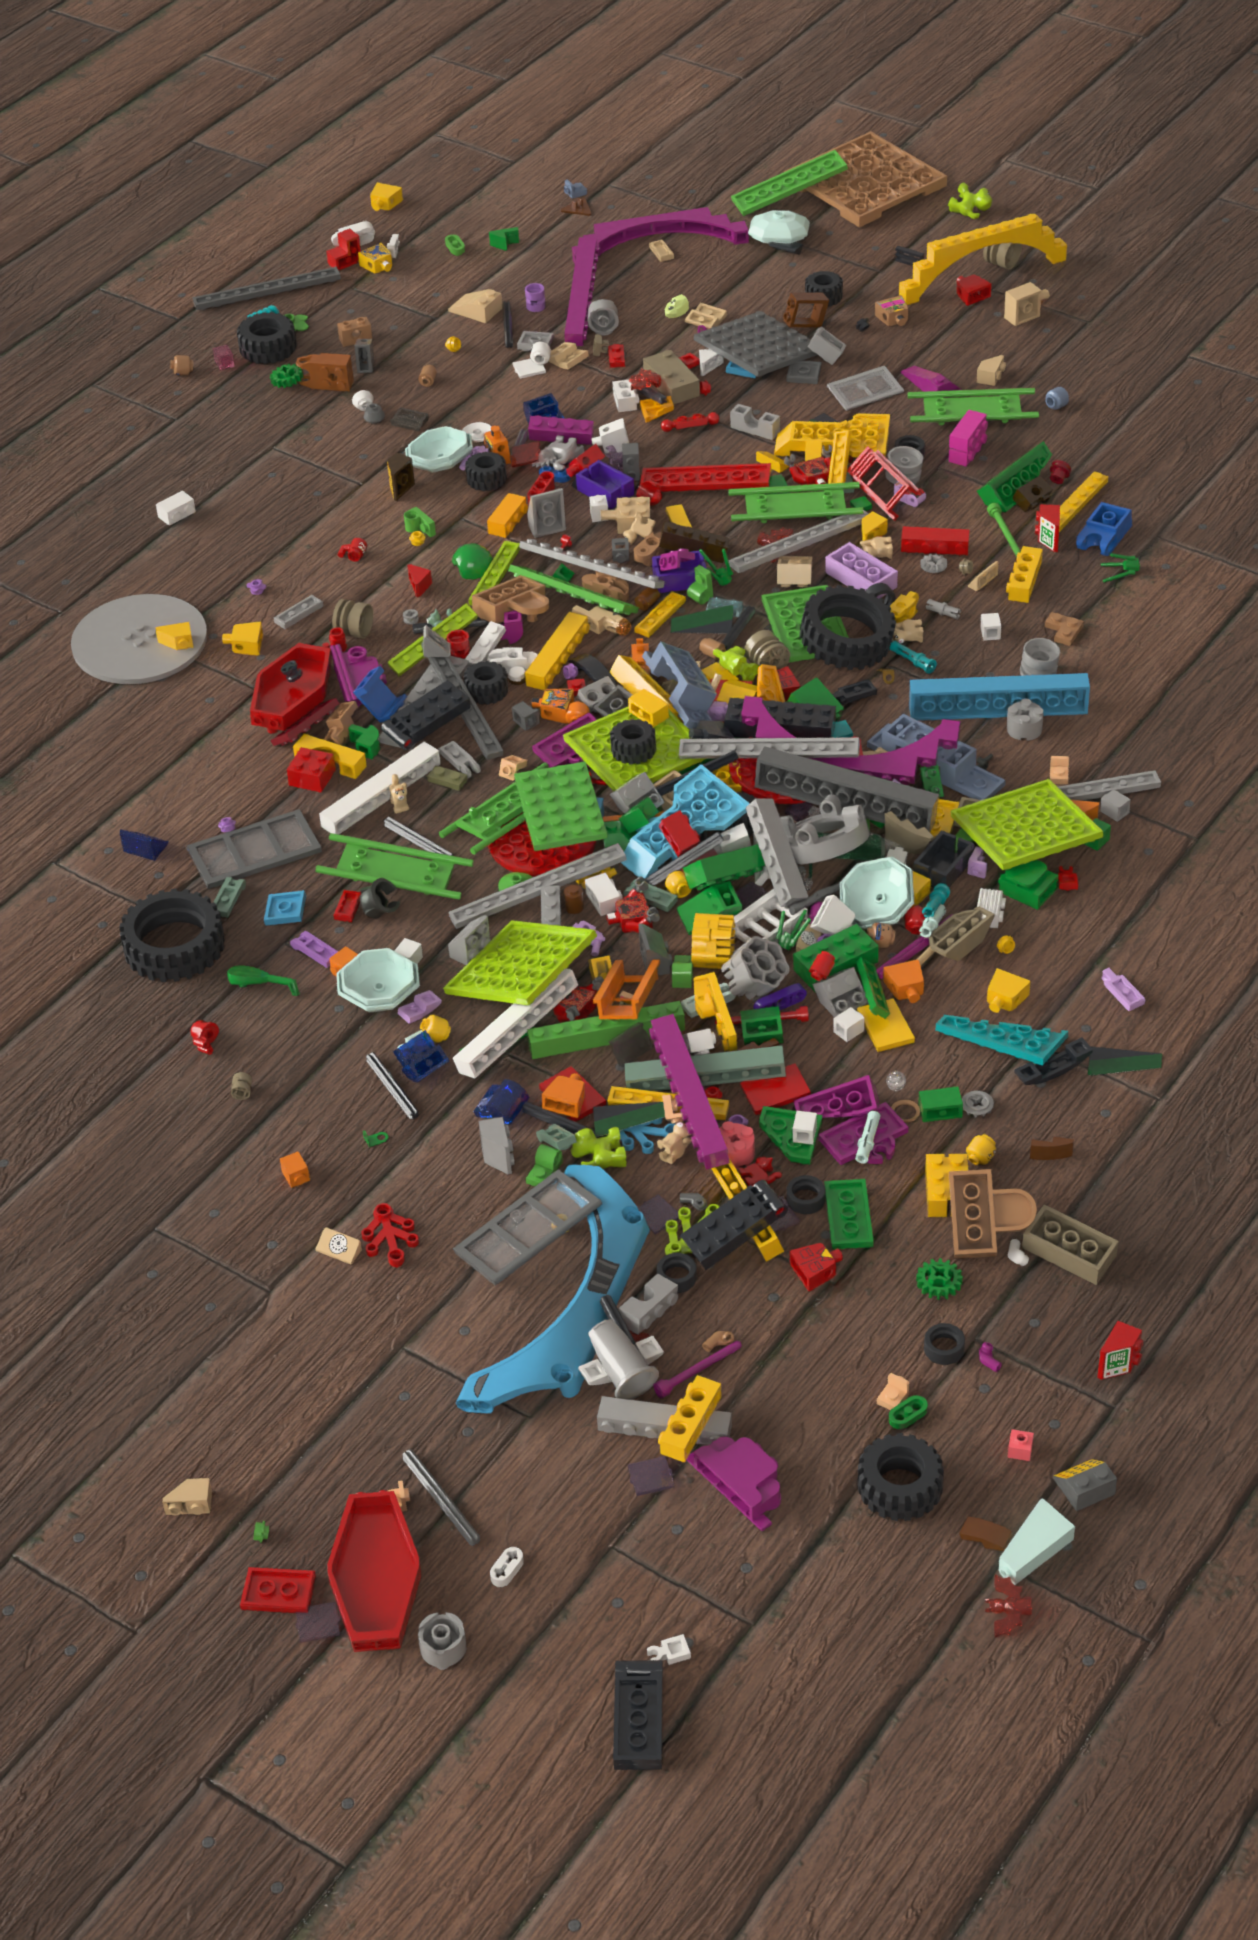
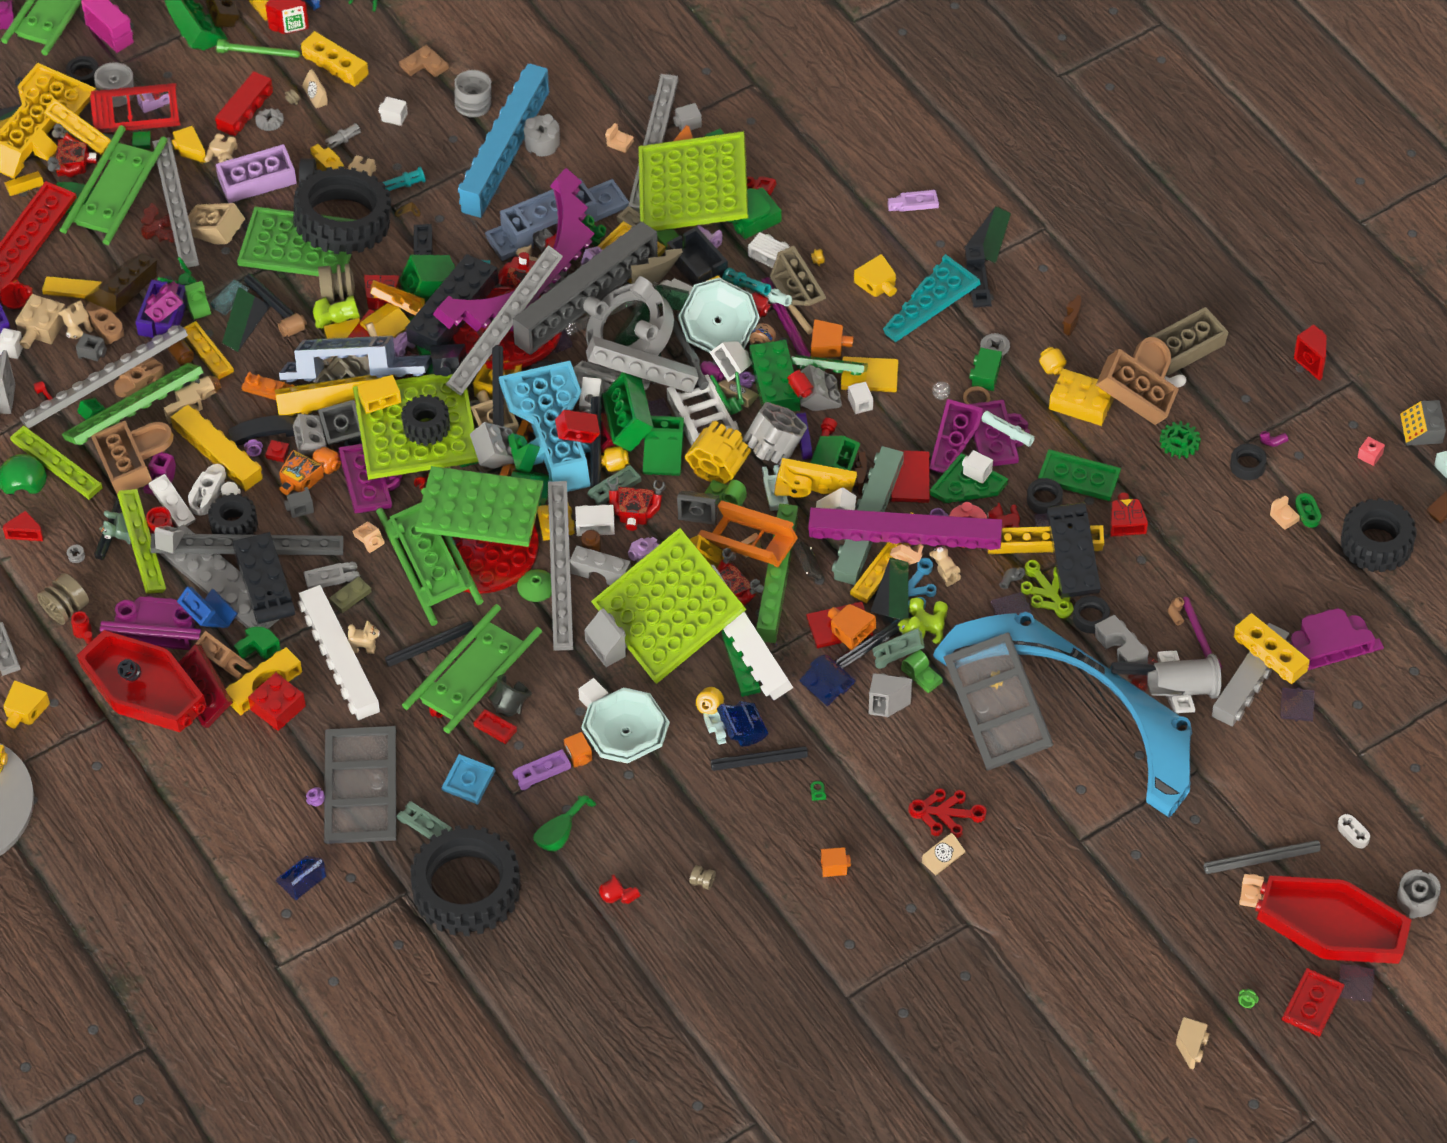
camera: 70 degrees left, 10 degrees up
(422, 1005) = (667, 705): lavender slope -> none

